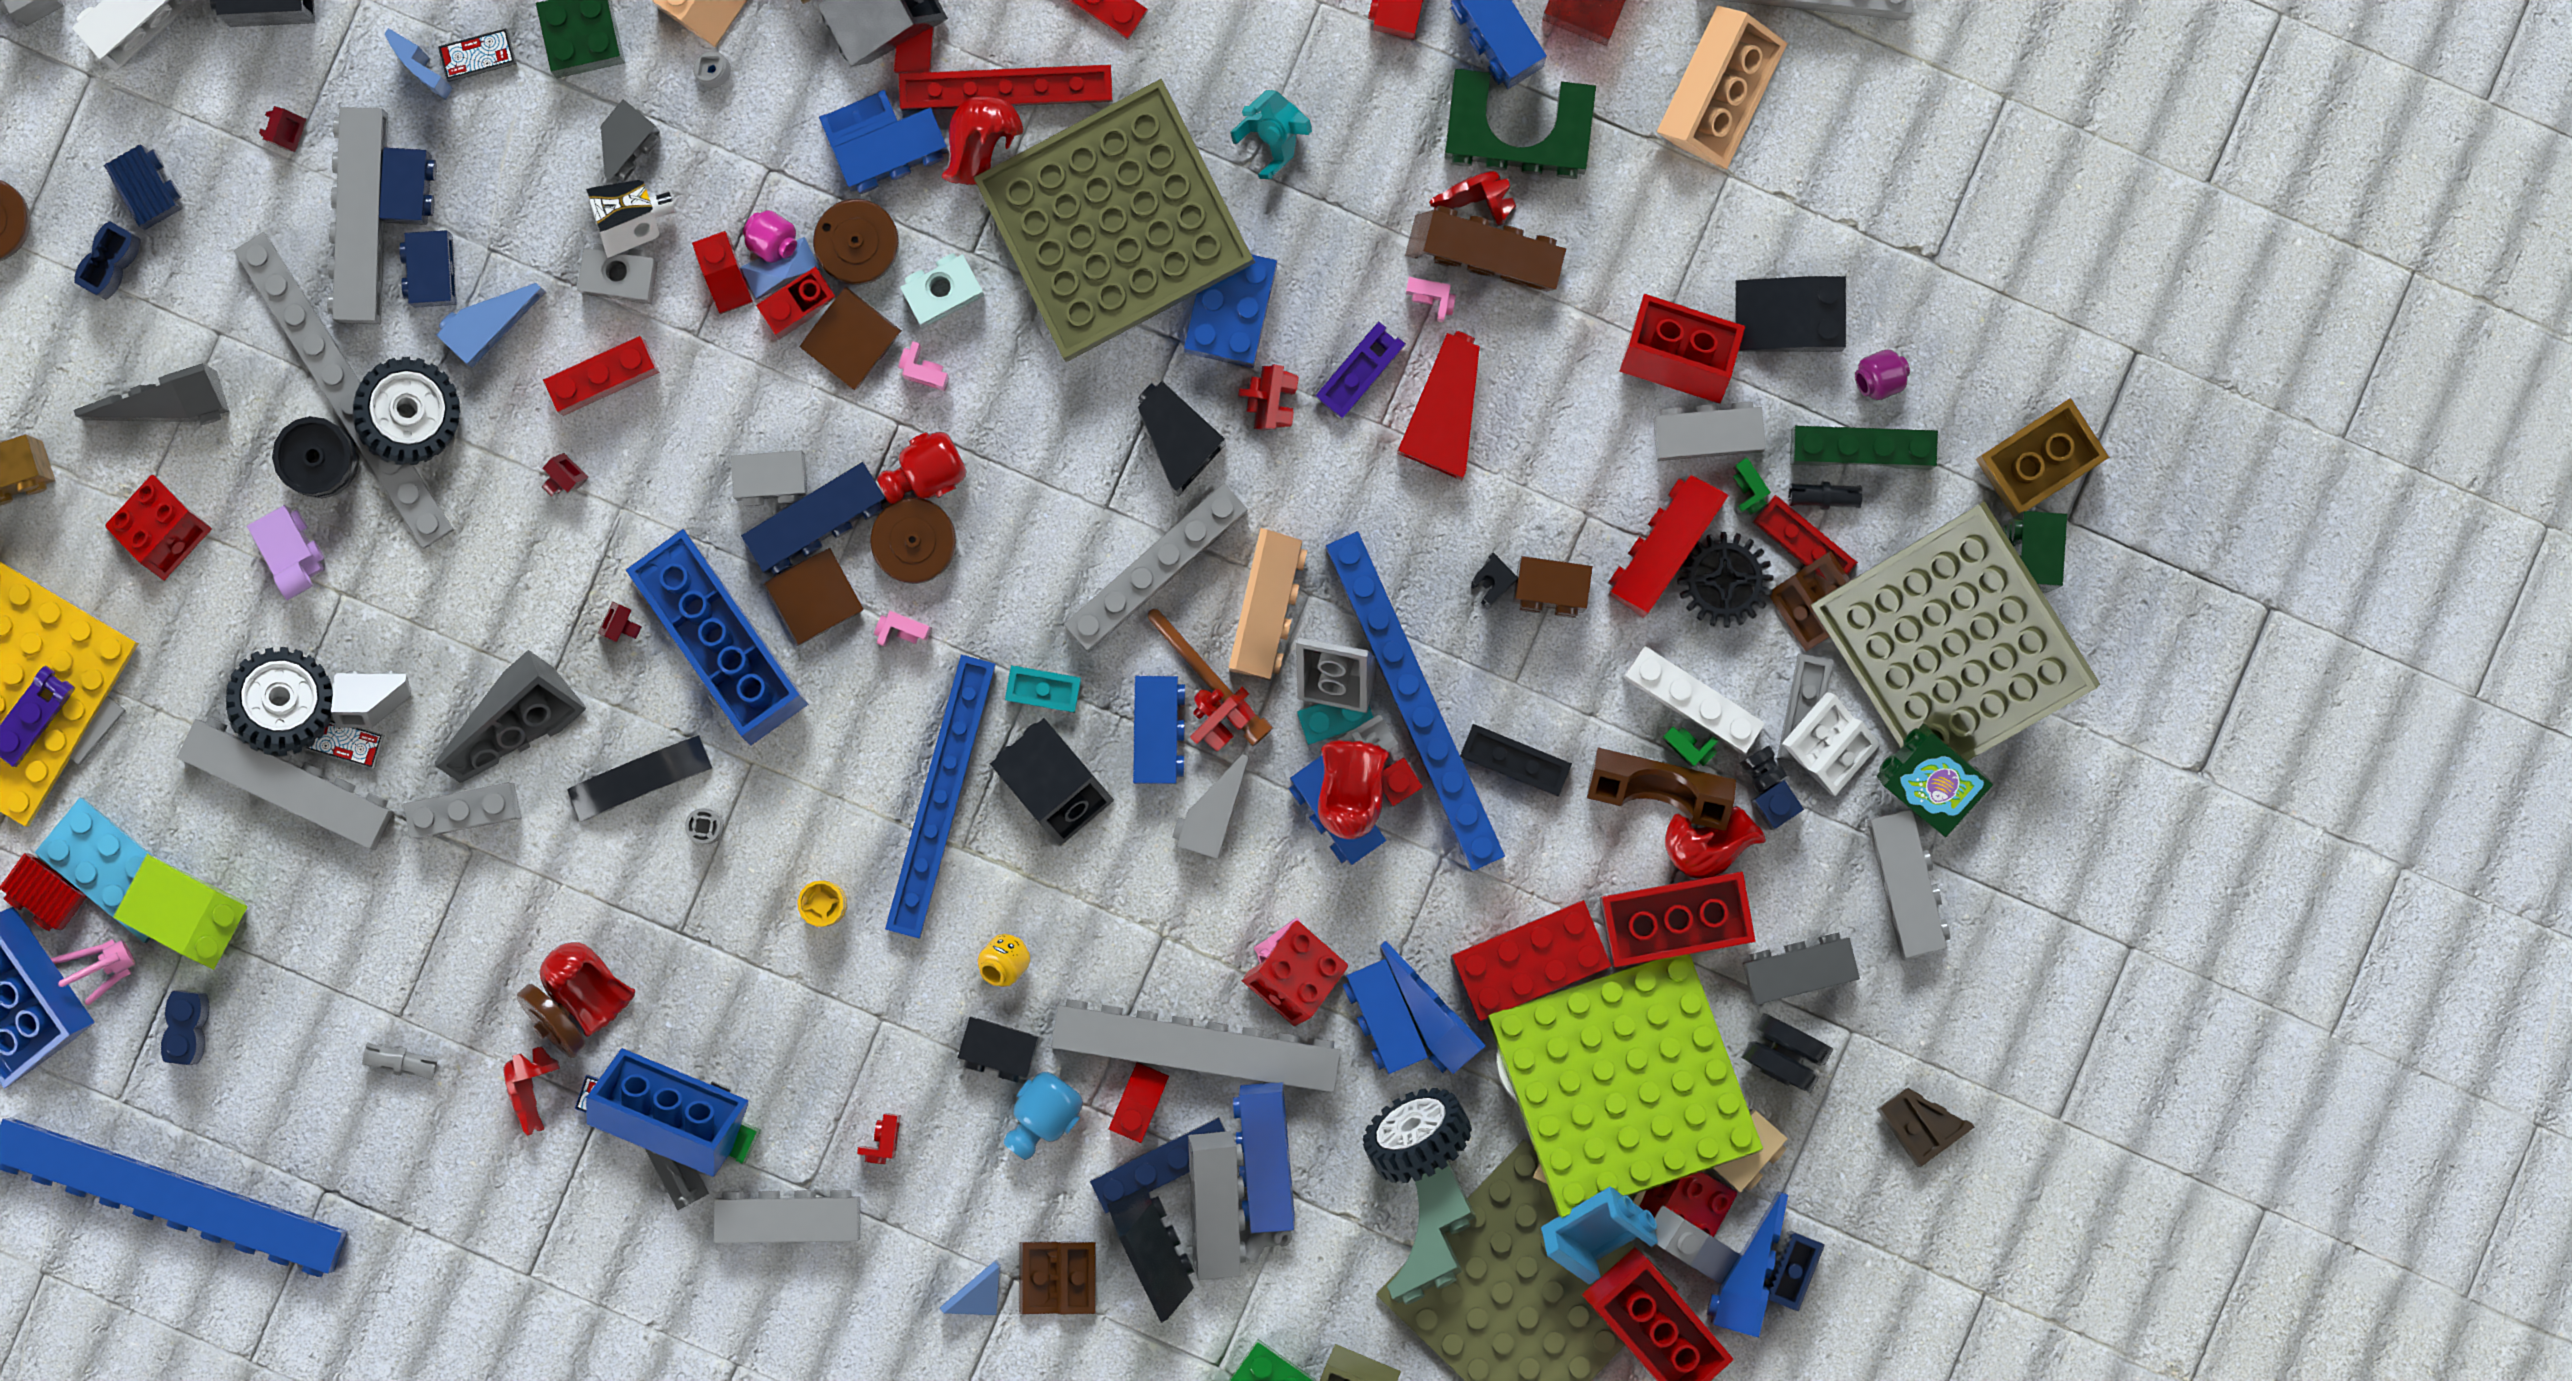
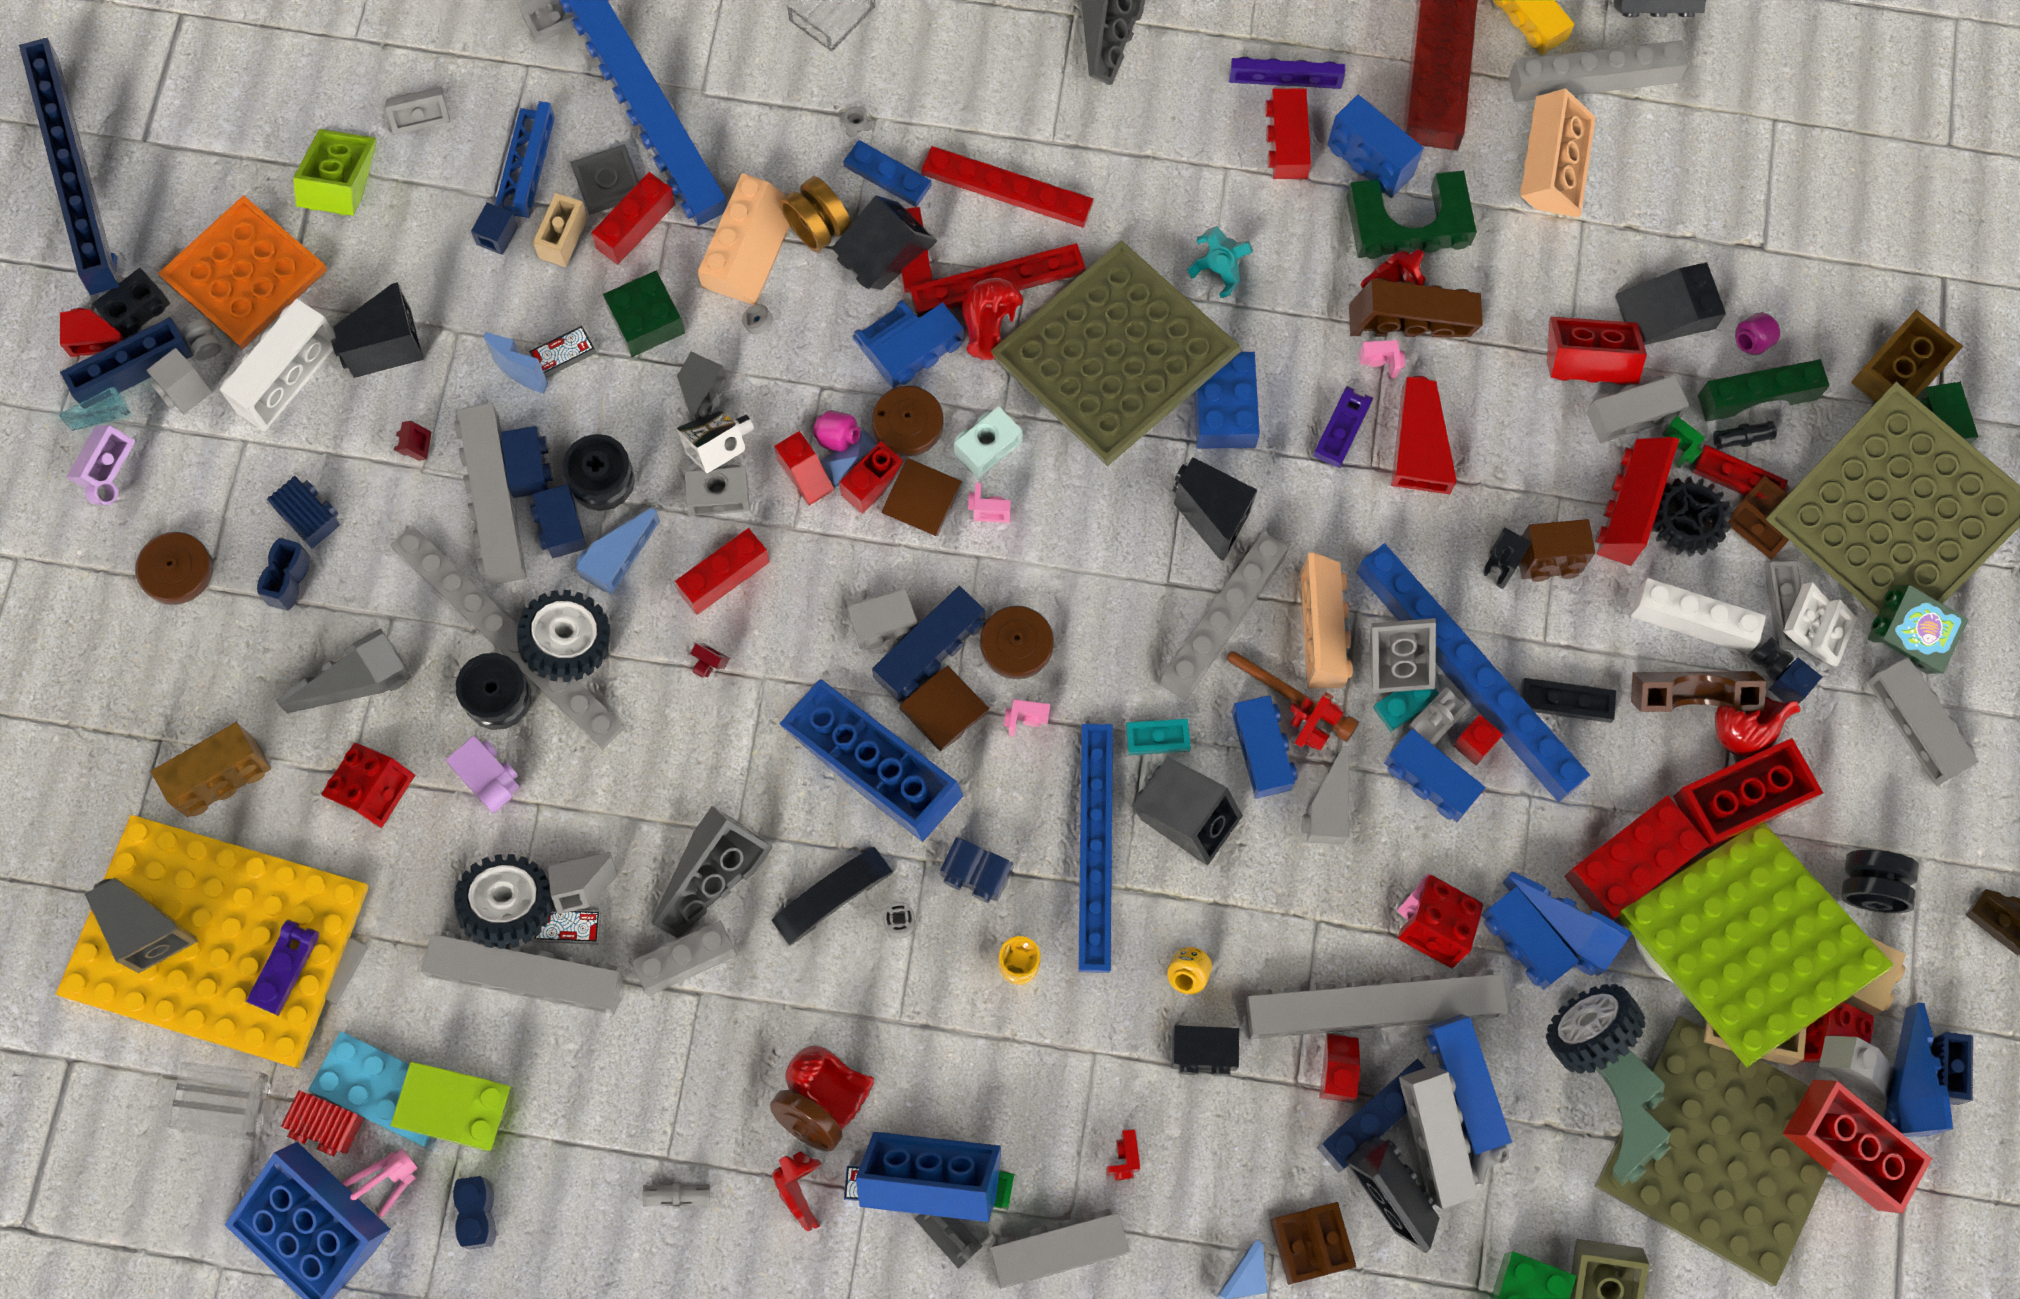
camera: 15 degrees left, 15 degrees down
(466, 214) = (598, 472): none -> black wheel
(617, 623) = (783, 768): dark red tile -> none
(802, 791) = (976, 870): none -> dark blue brick
(927, 467) = (1012, 580): red piece -> none
(1045, 1111) = (1262, 1094): dark azure piece -> none
(1265, 394) = (1274, 462): red hips -> none
(1351, 787) = (1448, 745): red piece -> none
(1596, 1230) = (1781, 1068): dark azure panel -> none
(1683, 744) = (1703, 656): green bracket -> none
(1800, 969) = (1861, 812): dark grey brick -> none

